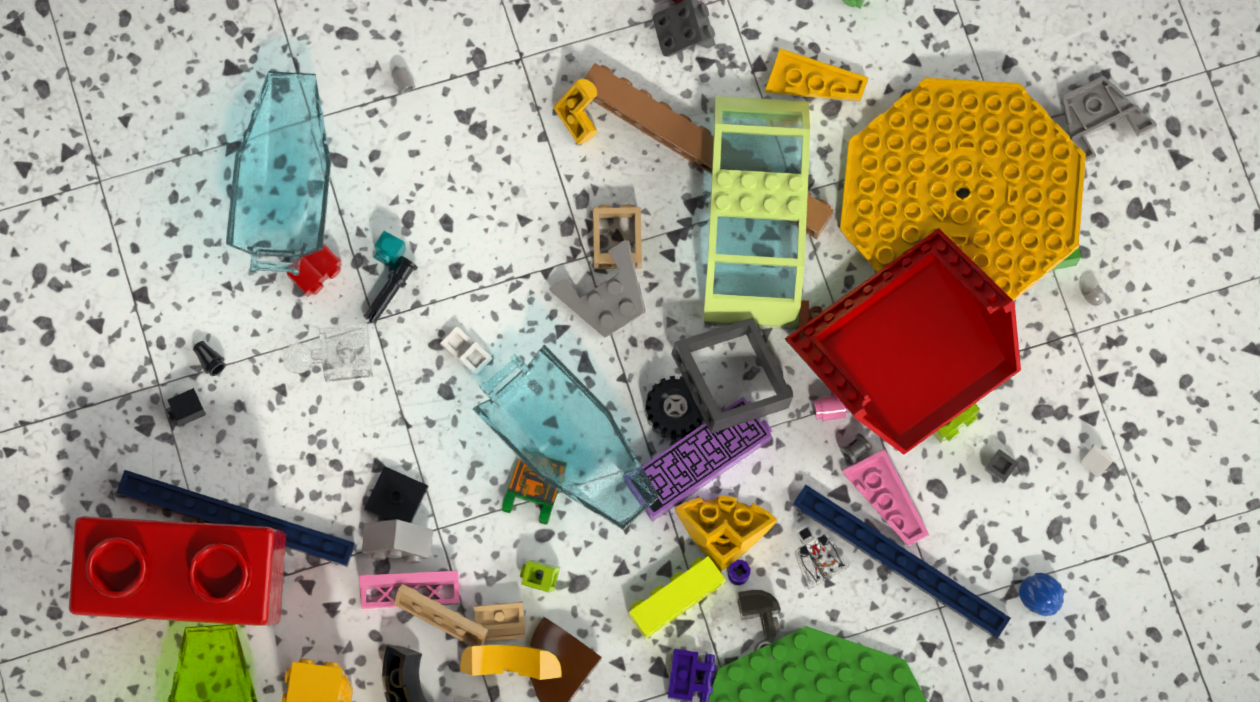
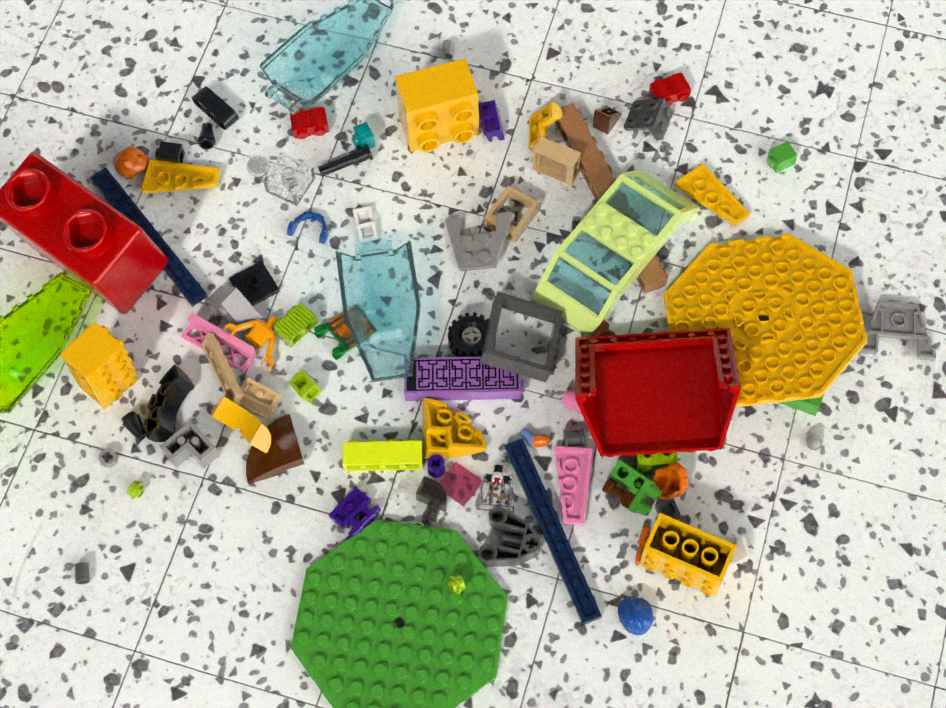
camera: 40 degrees right, 10 degrees down
(147, 445) = (130, 162): none -> orange hair
(192, 318) = (215, 108): none -> black beam
(209, 431) = (171, 176): none -> yellow wing
(408, 374) = (313, 216): none -> blue piece
(448, 554) = (258, 336): none -> light orange piece
(458, 165) = (438, 105): none -> yellow brick
(478, 514) = (295, 324): none -> lime brick
(516, 140) = (490, 120): none -> dark purple hinge
(624, 146) = (556, 160): none -> tan window
(639, 57) = (605, 119): none -> reddish brown slope
(774, 573) = (460, 484): none -> clear pink piece
(818, 478) = (535, 441): none -> arm
(851, 682) = (456, 584): none -> lime plate
(863, 581) = (508, 556): none -> dark grey connector
(958, 463) = (637, 490): none -> bright green hips
(986, 433) = (671, 480): none -> orange hair
(997, 514) = (642, 542): none -> orange piece
(1056, 501) = (687, 555): none -> yellow brick

